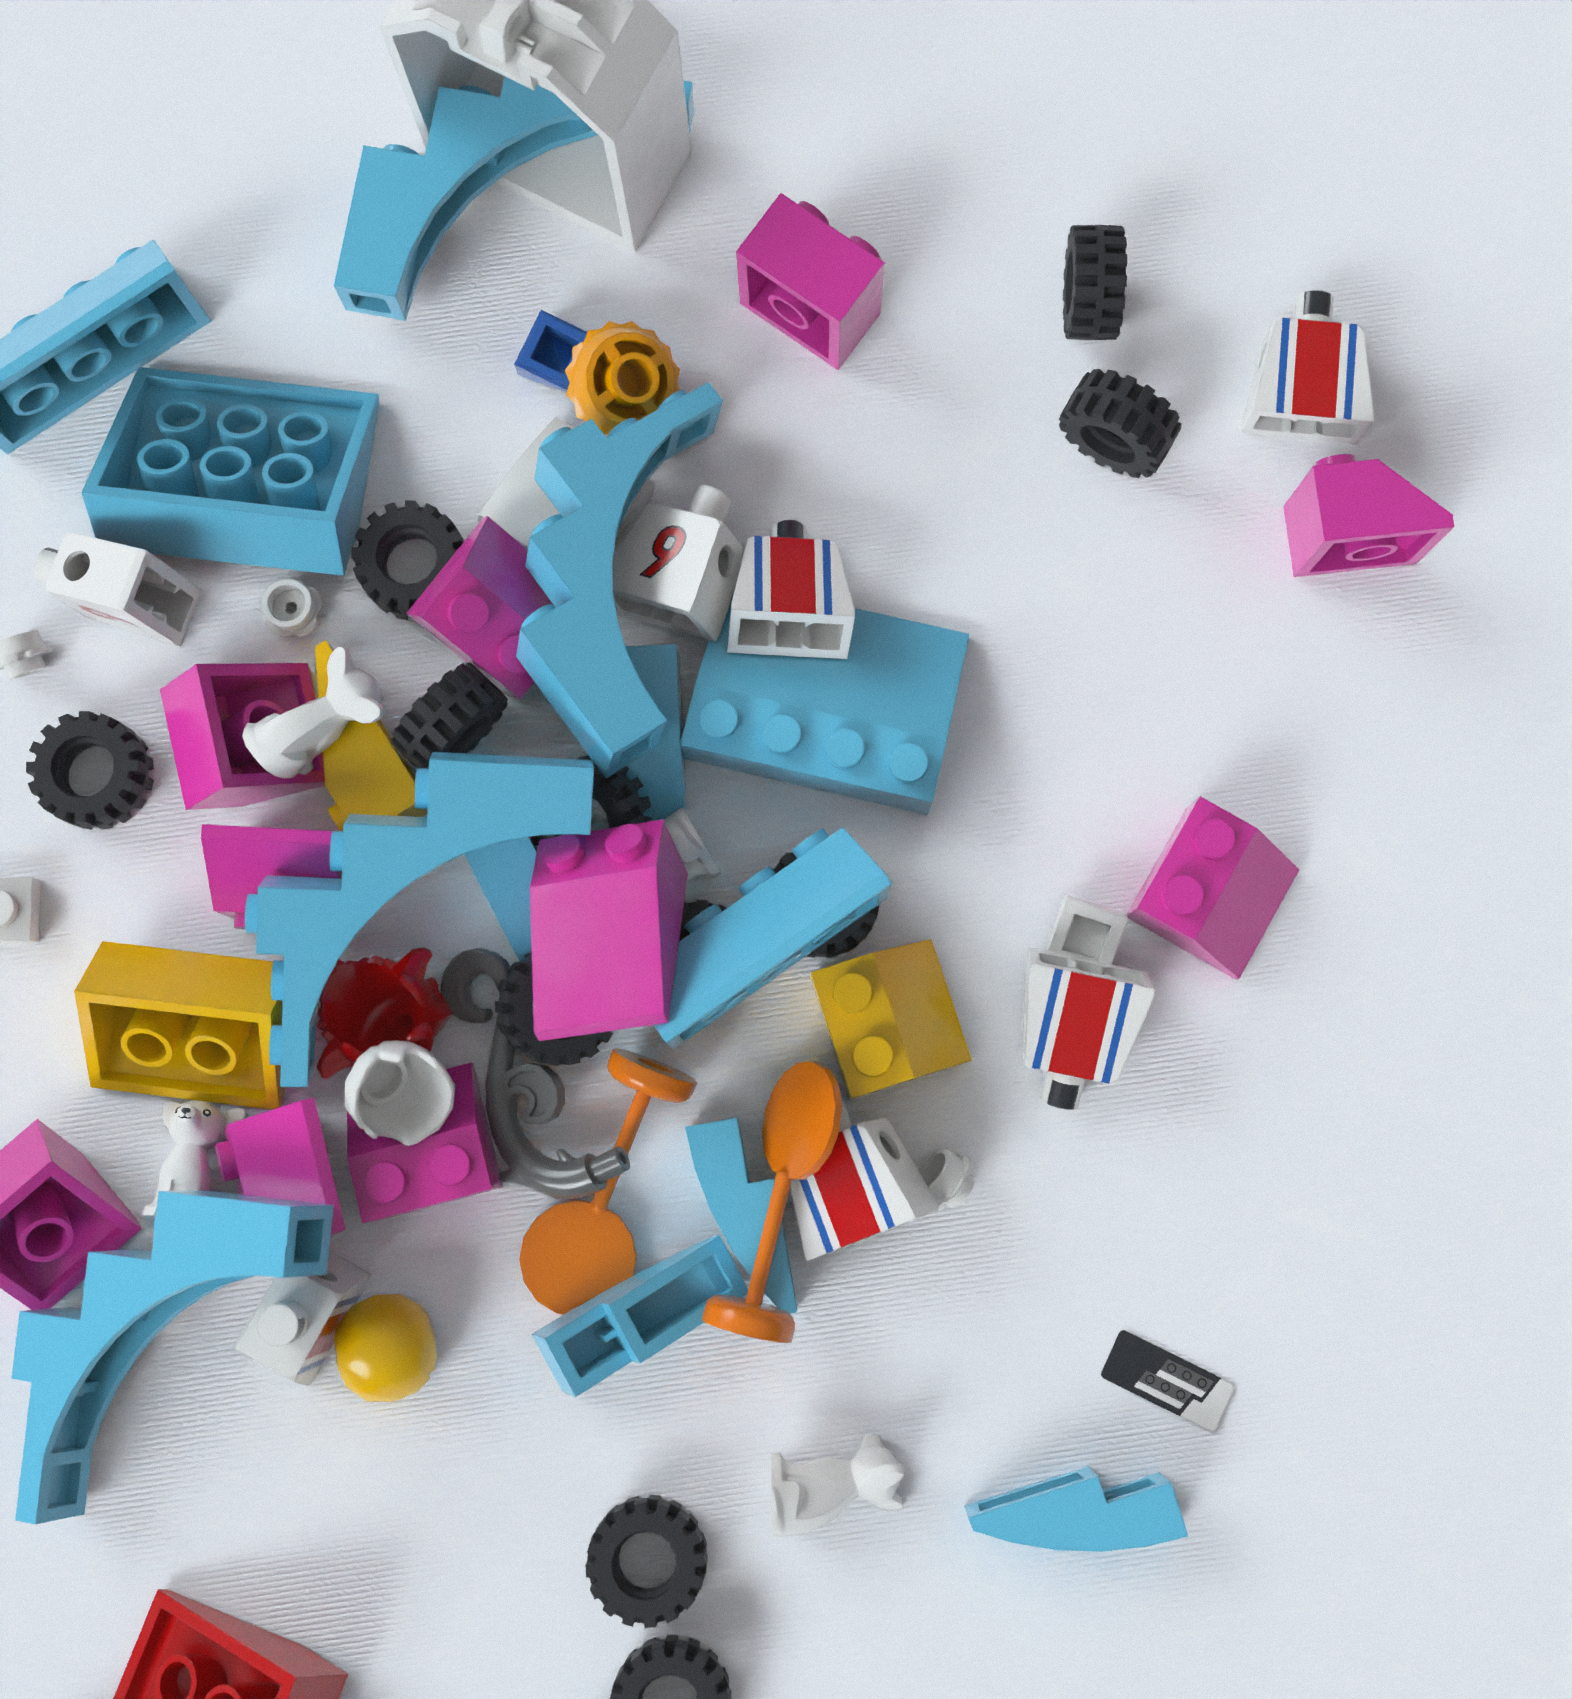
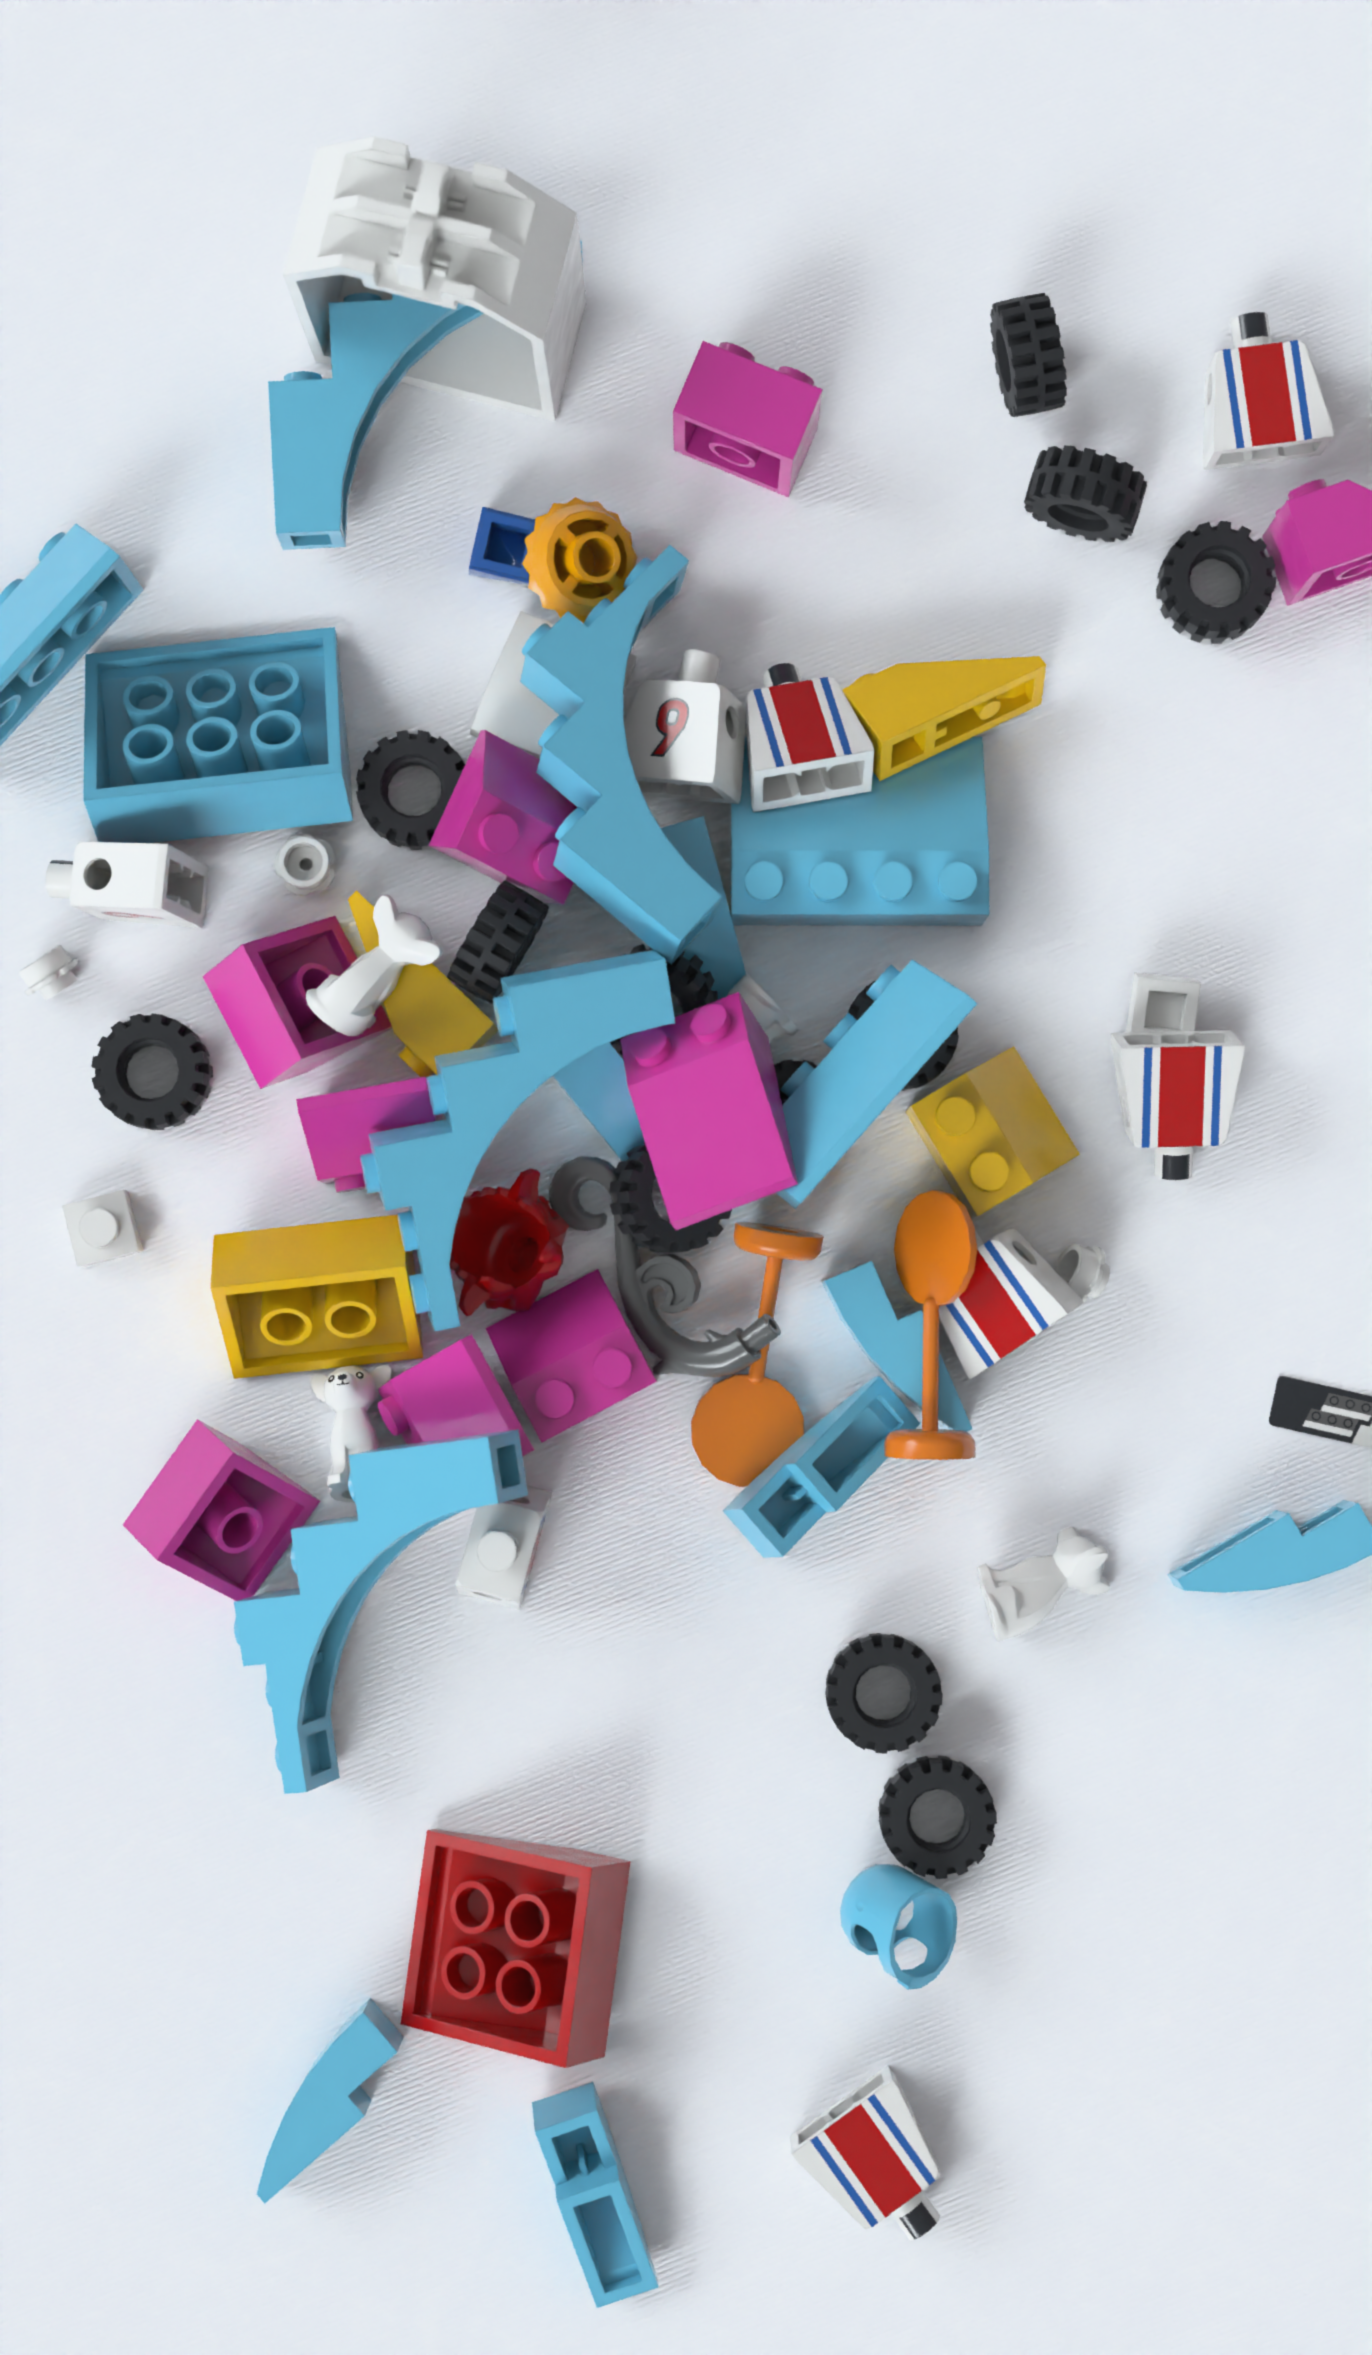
camera: 15 degrees left, 5 degrees up
(385, 1348) = (587, 1556): yellow hair -> none
(399, 1092) = (548, 1310): white hair -> none
(929, 592) = (934, 705): none -> yellow slope
(1214, 887) = (1276, 933): dark pink slope -> none
(1248, 507) = (1227, 546): none -> black tyre

